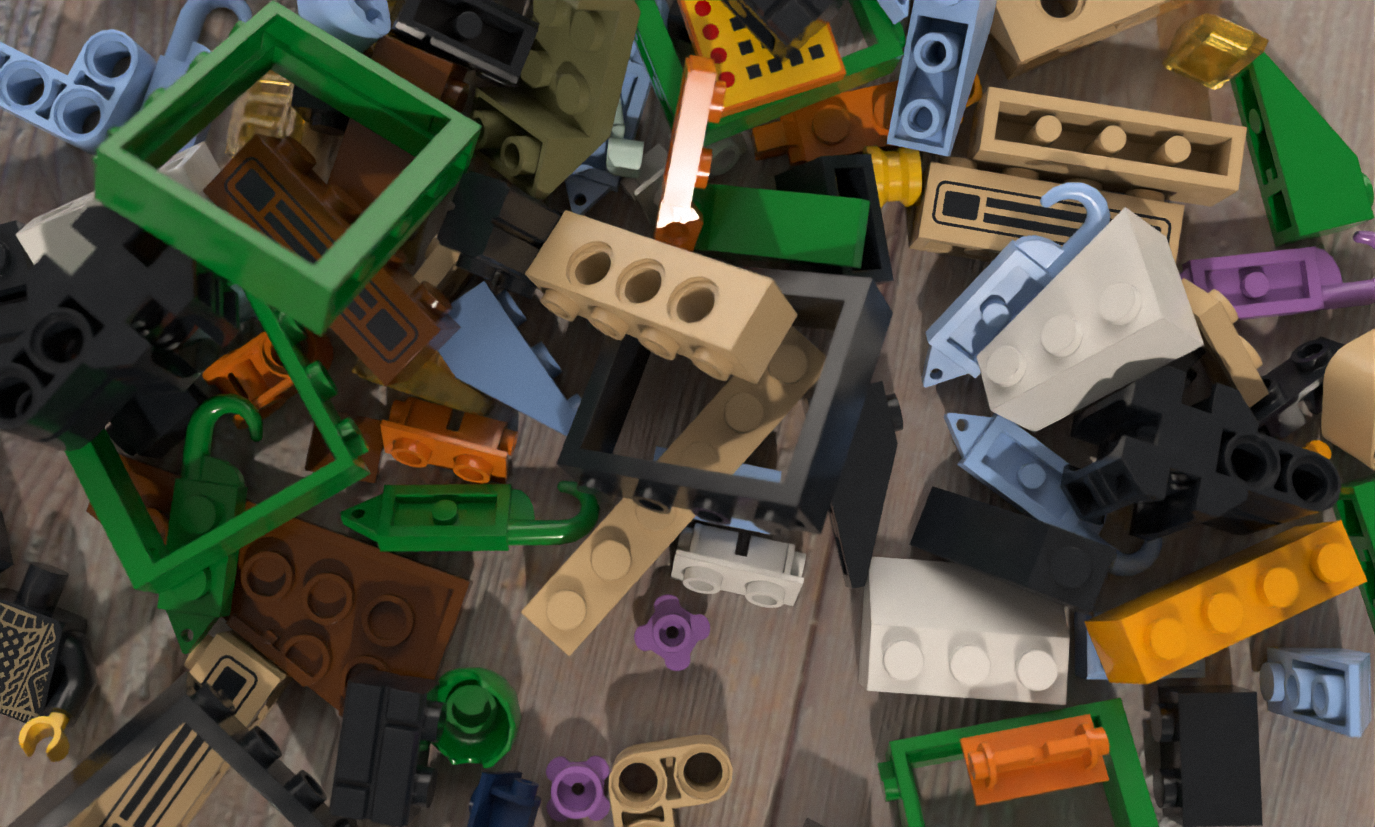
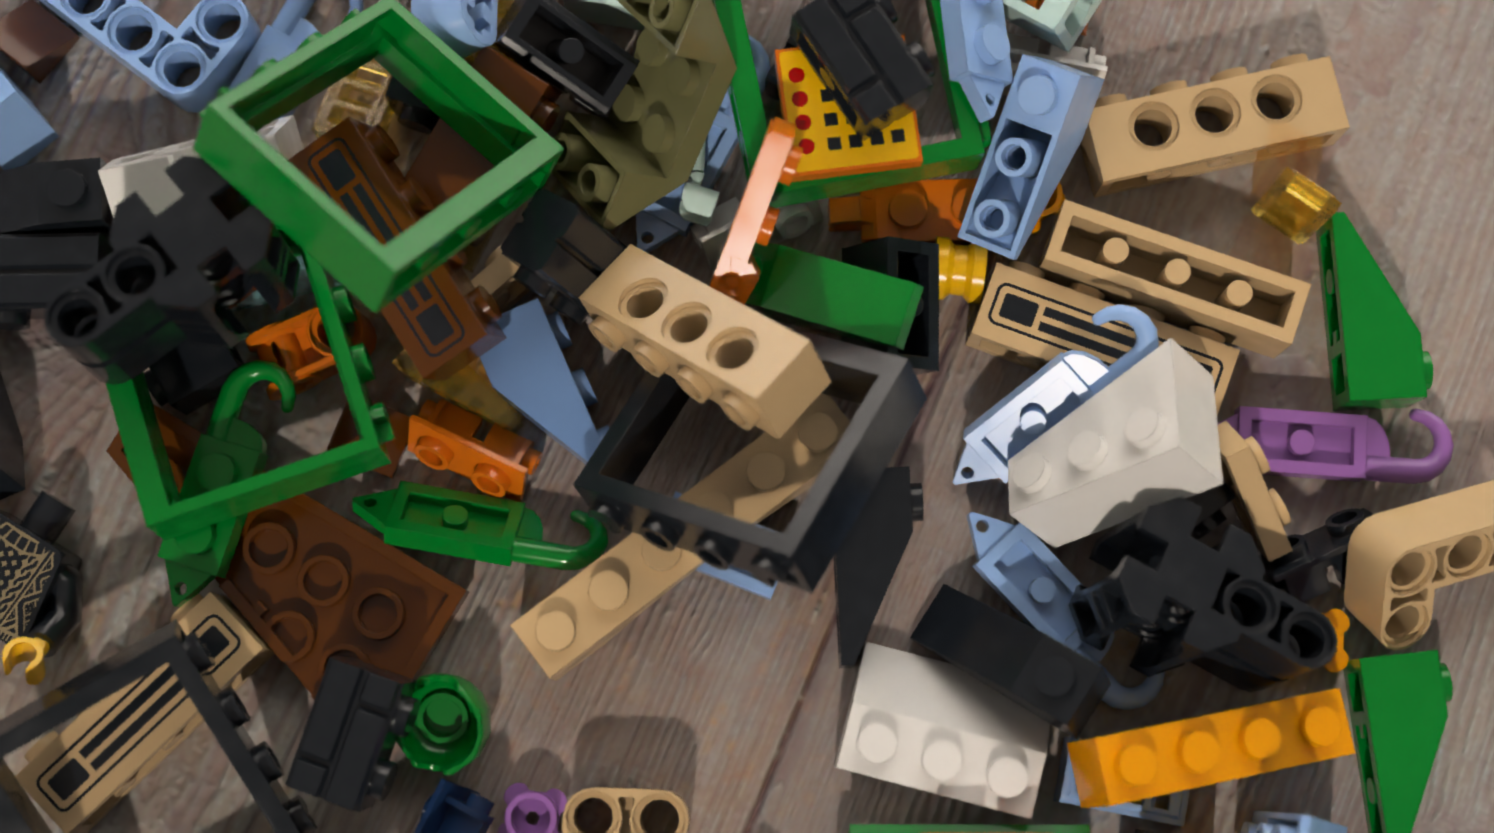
camera: 15 degrees right, 5 degrees down
(677, 650) = (636, 679): medium lavender plate -> none
(709, 564) = (706, 618): white hinge -> none

